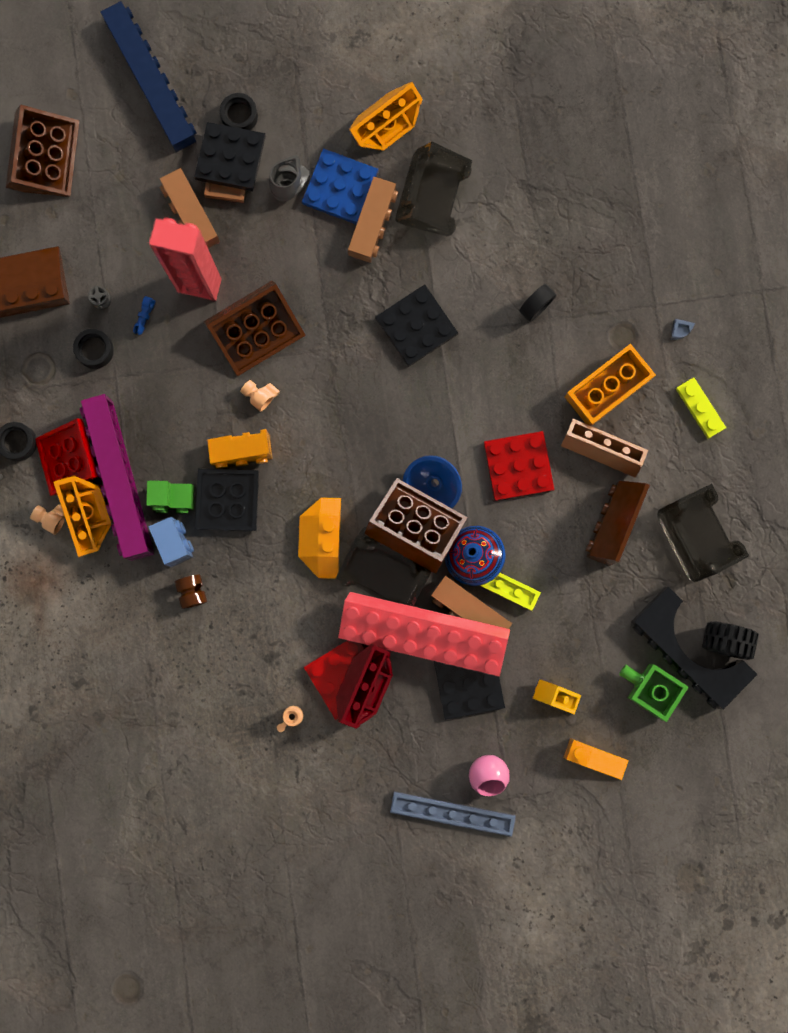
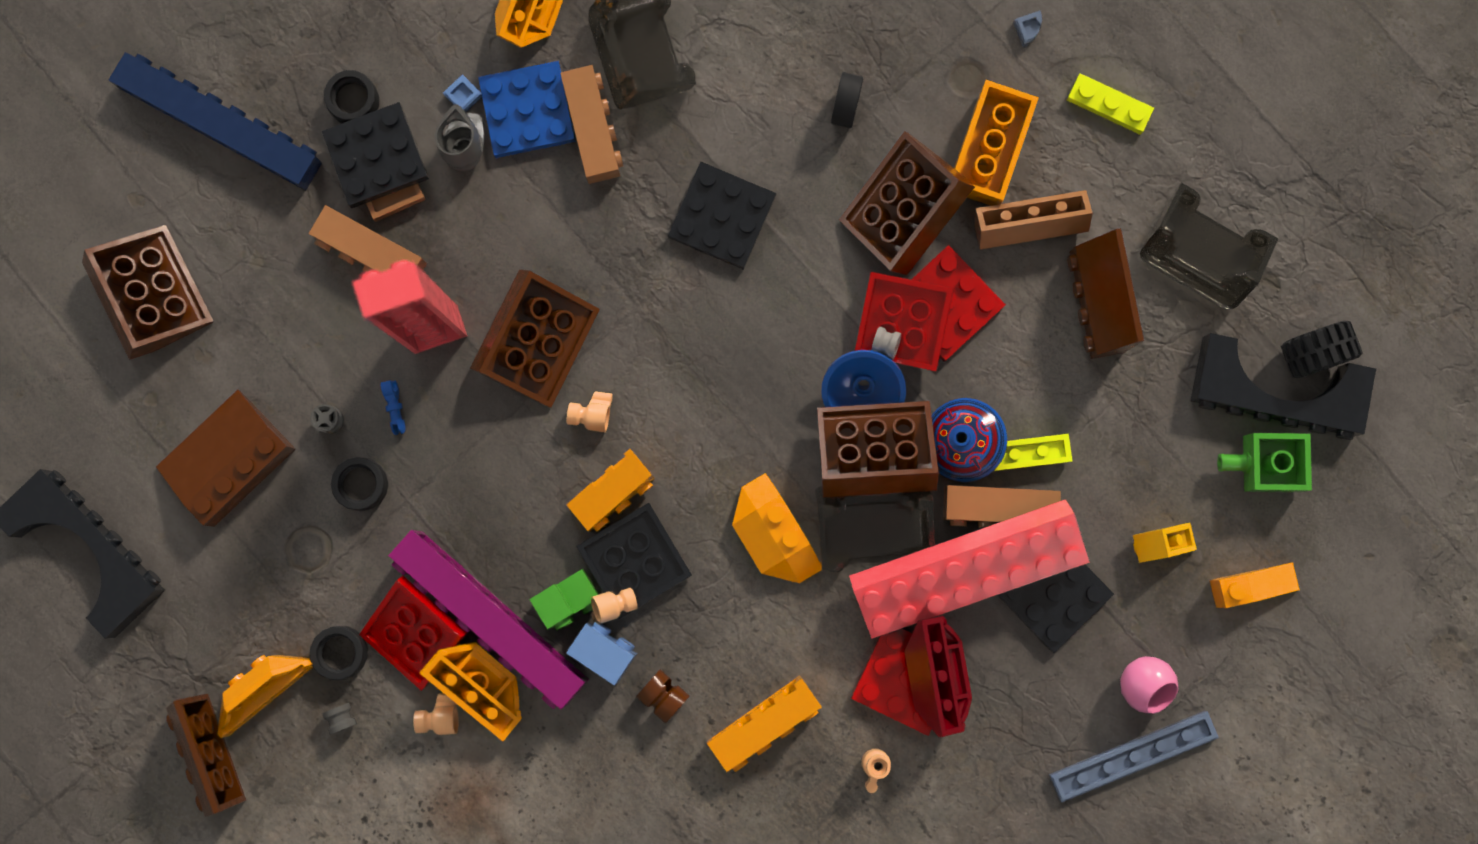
camera: 30 degrees left, 0 degrees up
(193, 516) = (608, 605): none -> light nougat piece
(240, 648) = (764, 724): none -> light orange wedge
(307, 153) = (462, 93): none -> medium blue tile
(464, 465) = (886, 342): none -> light grey wheel
(485, 459) = (911, 308): none -> red plate
(531, 389) = (906, 204): none -> reddish brown slope

